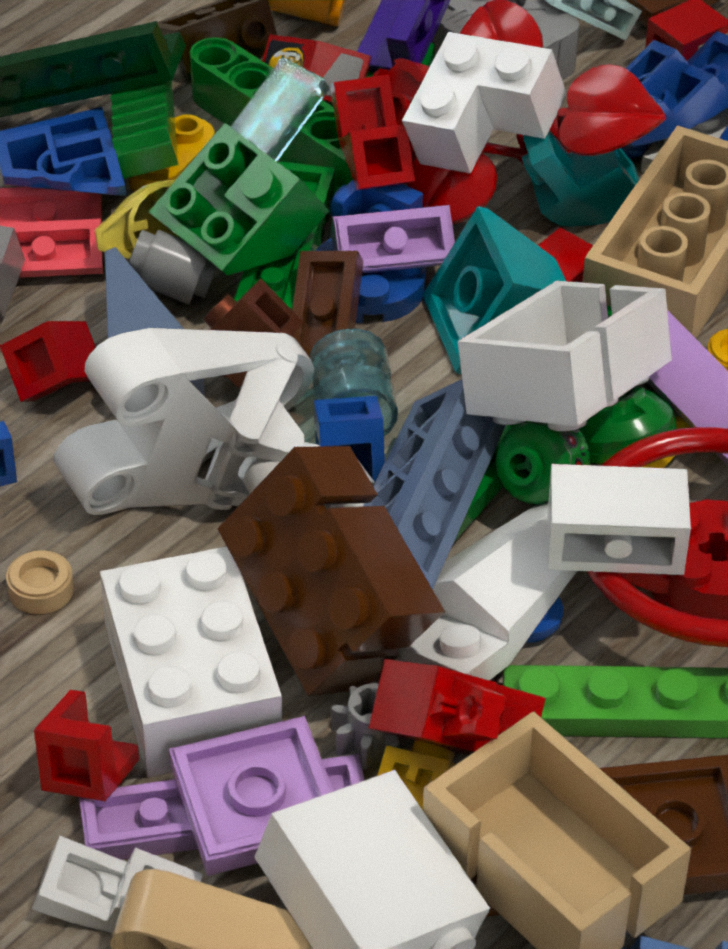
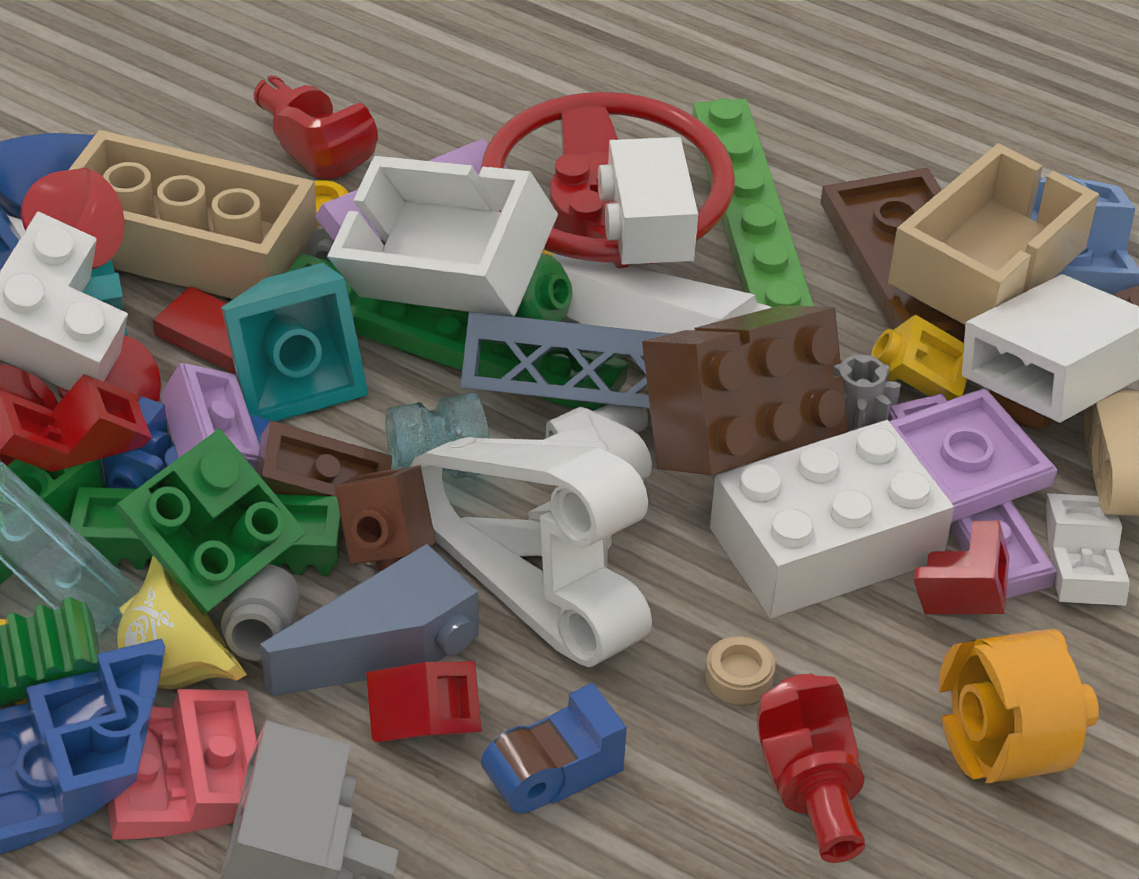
camera: 100 degrees left, 0 degrees up
(355, 424) = (521, 411): blue panel -> none
(446, 706) = (887, 297): red hinge -> none

